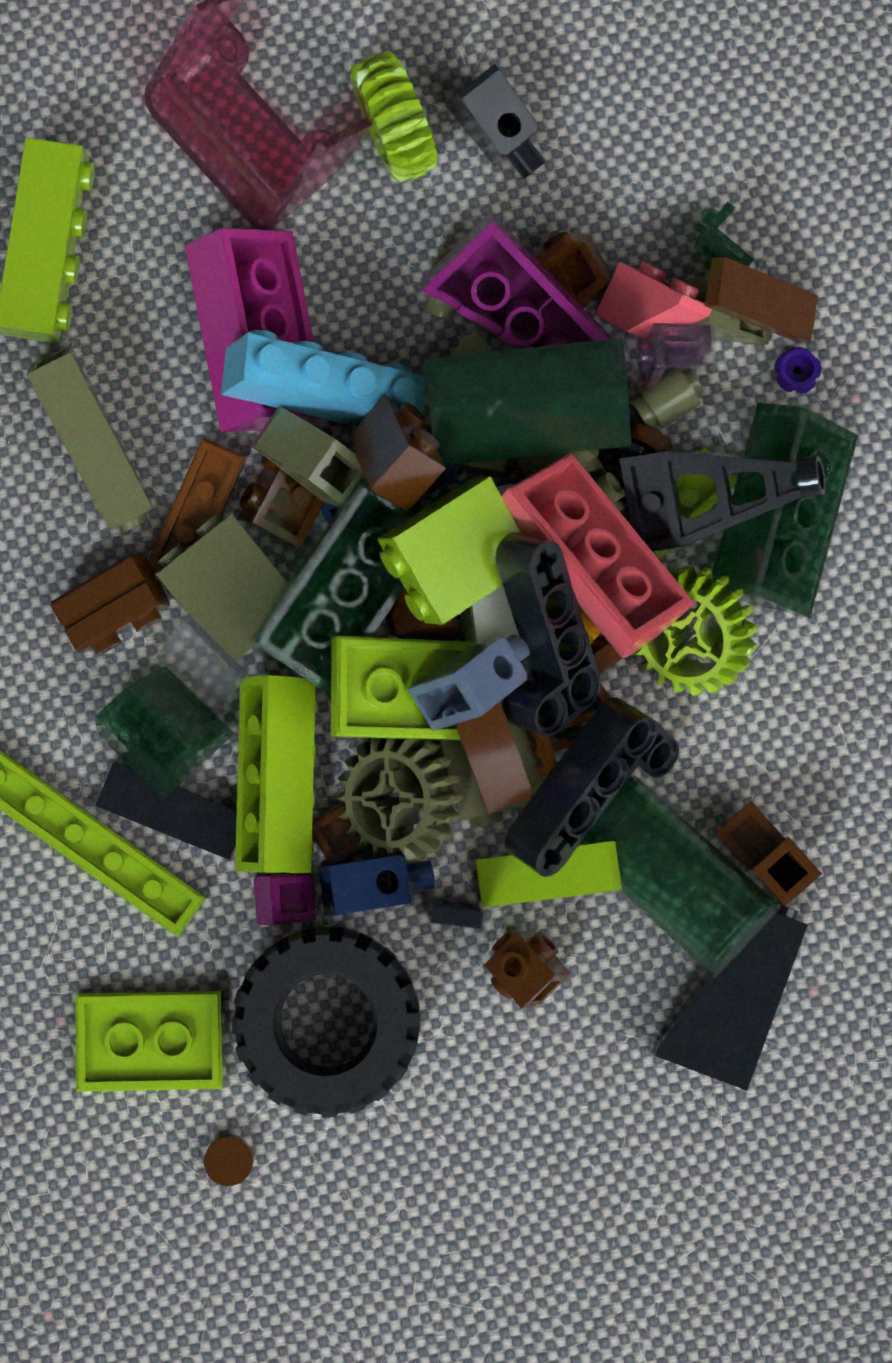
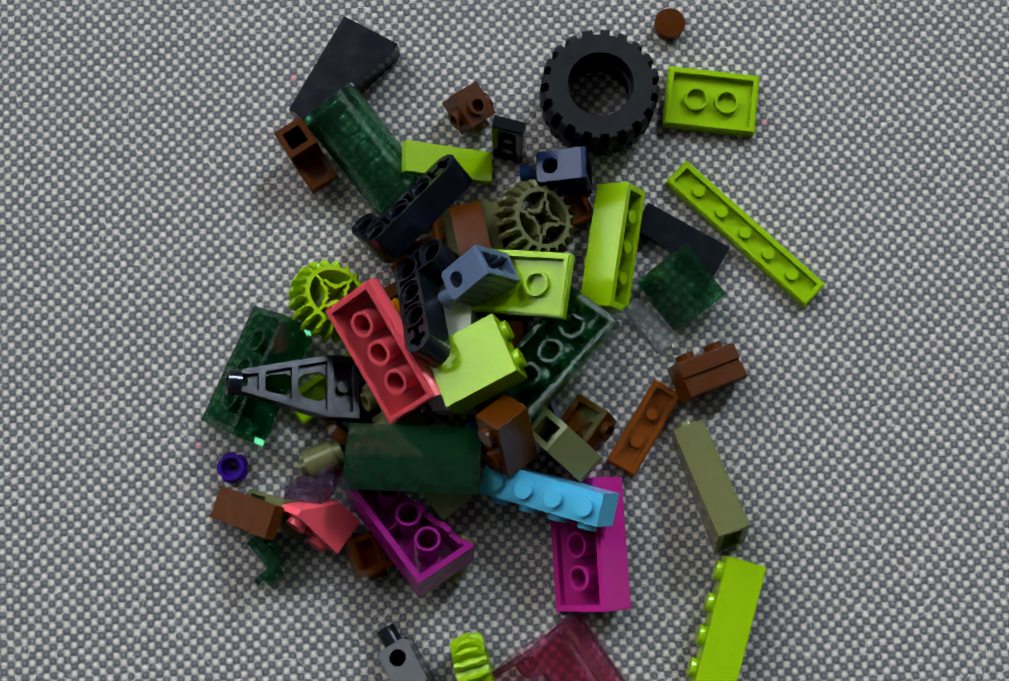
camera: 170 degrees left, 5 degrees down
(223, 583) = (630, 373): olive brick -> none
(284, 898) = (615, 171): magenta slope -> none

